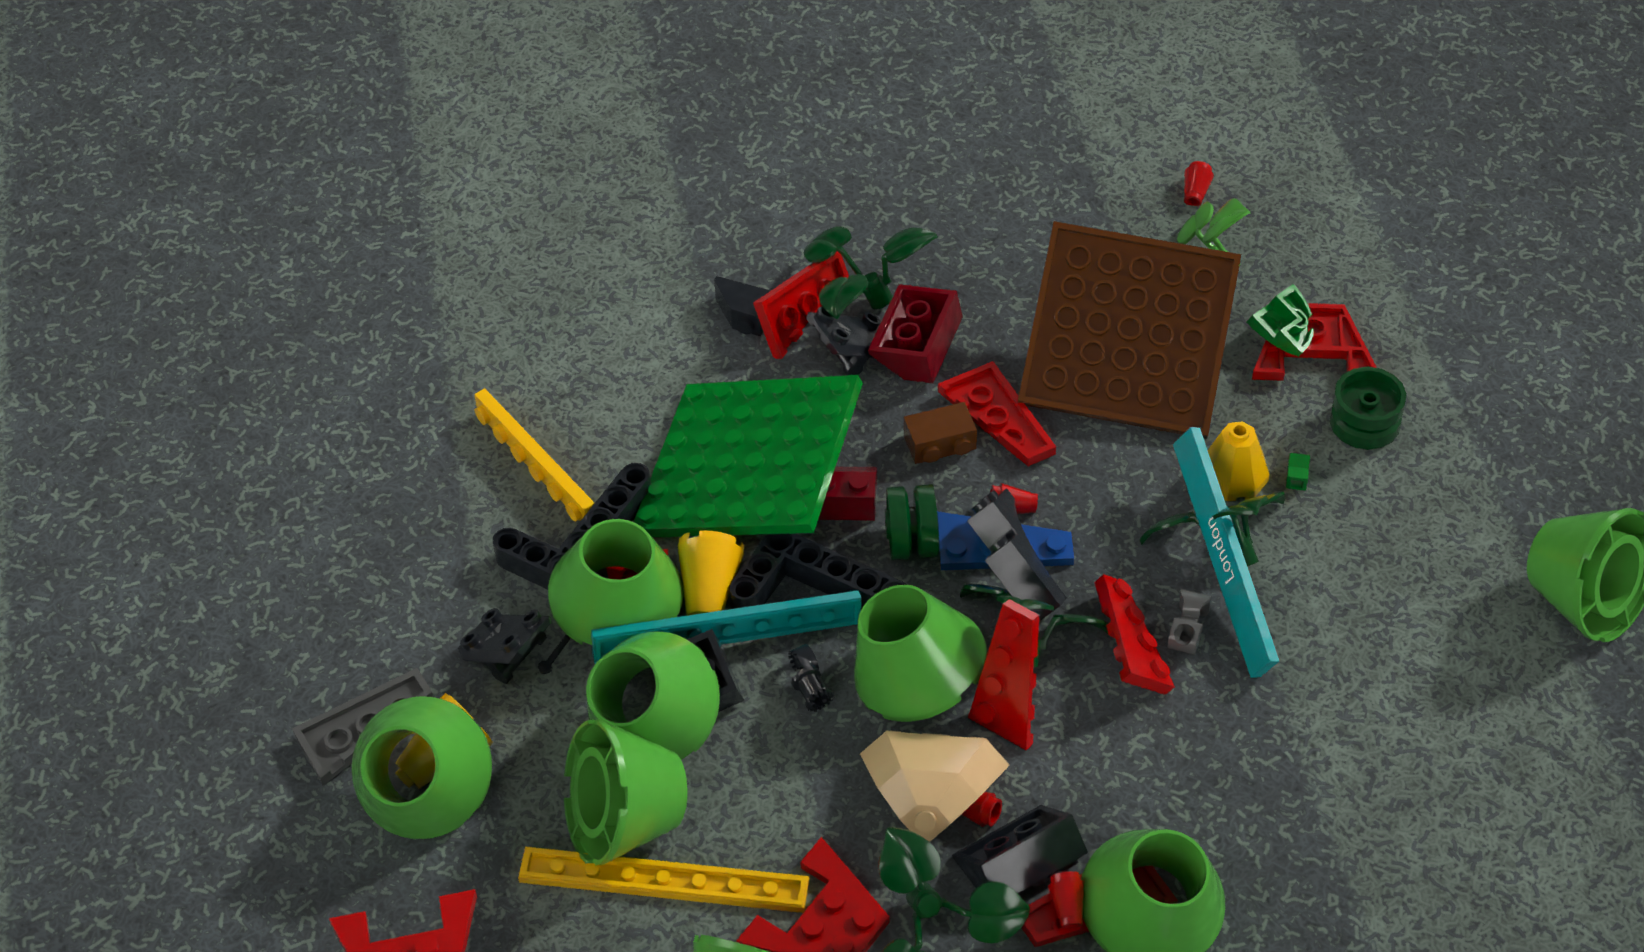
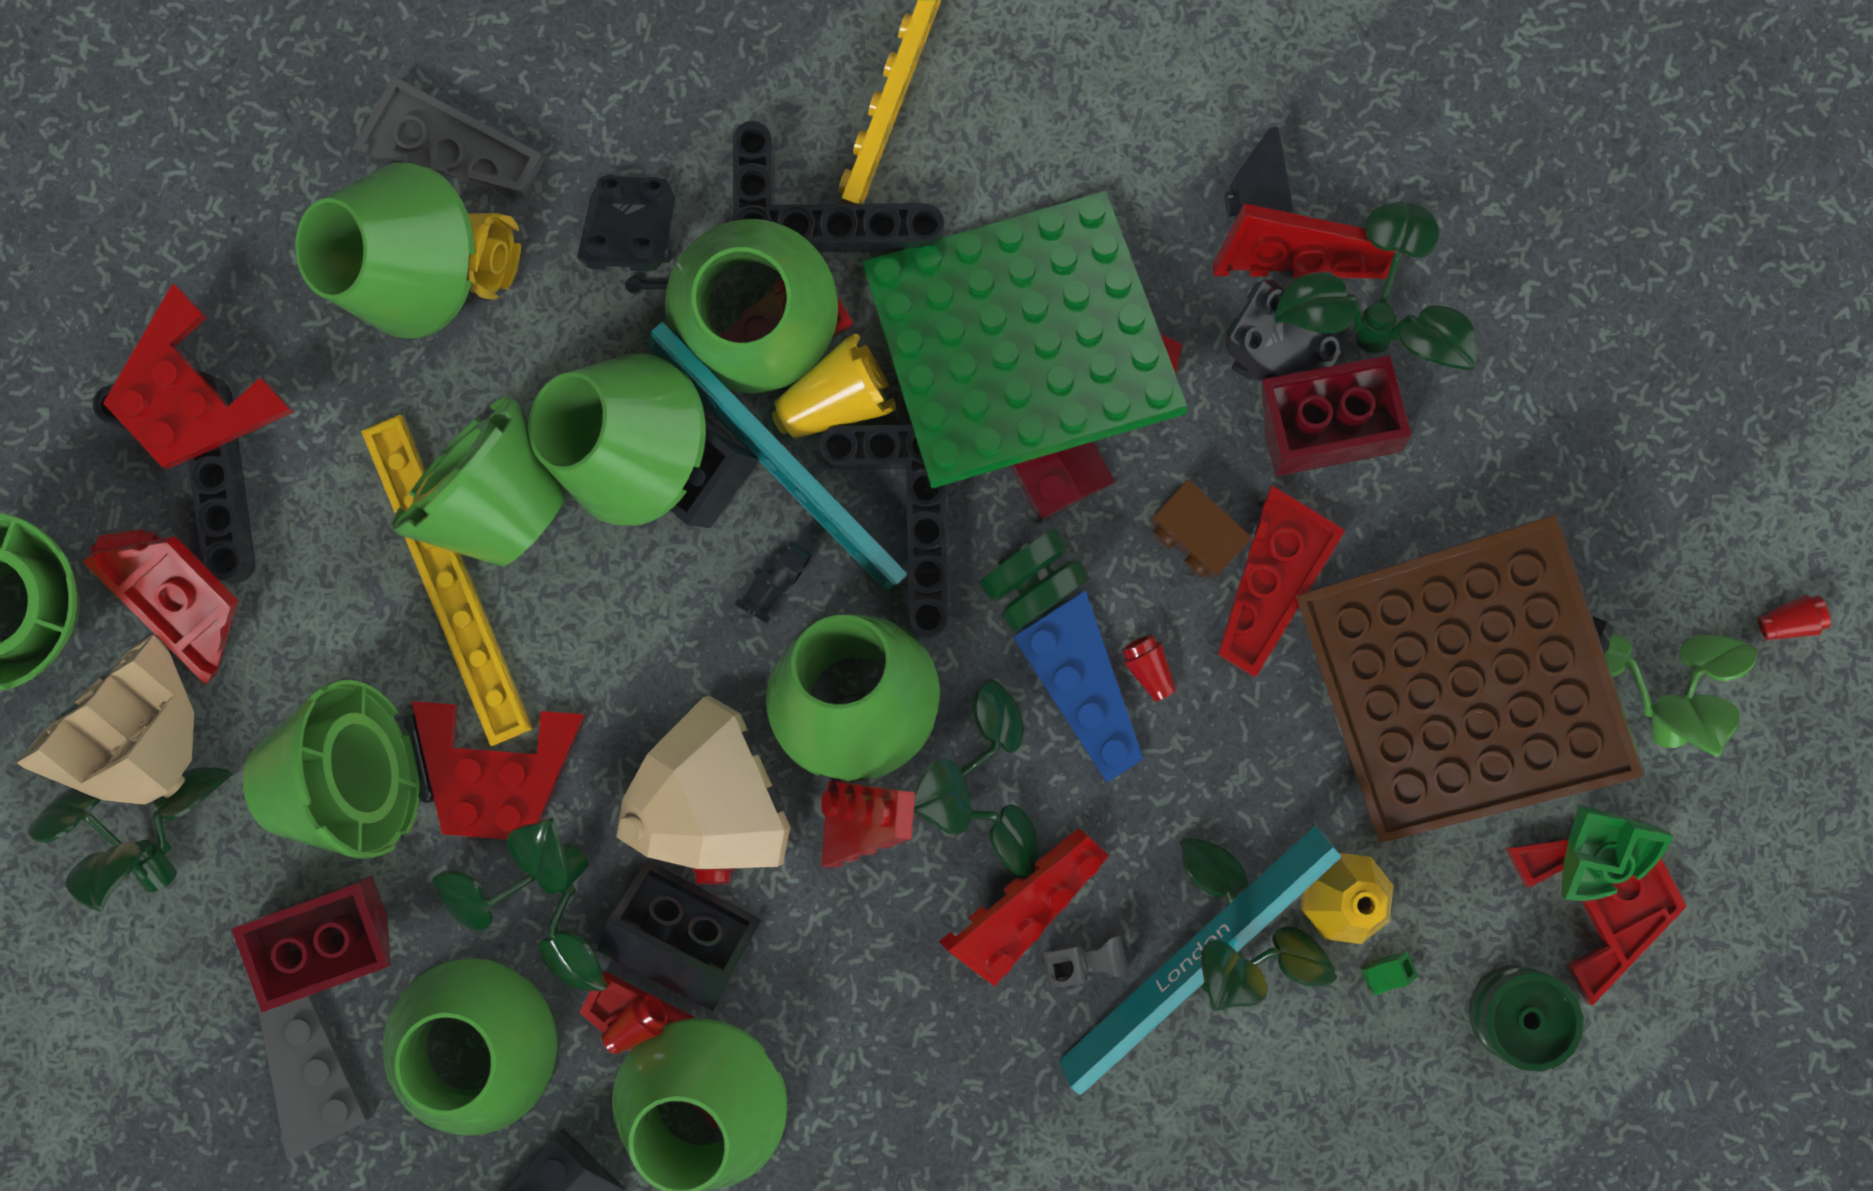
camera: 55 degrees right, 35 degrees up
(1011, 552) = (1042, 727): black arch -> none

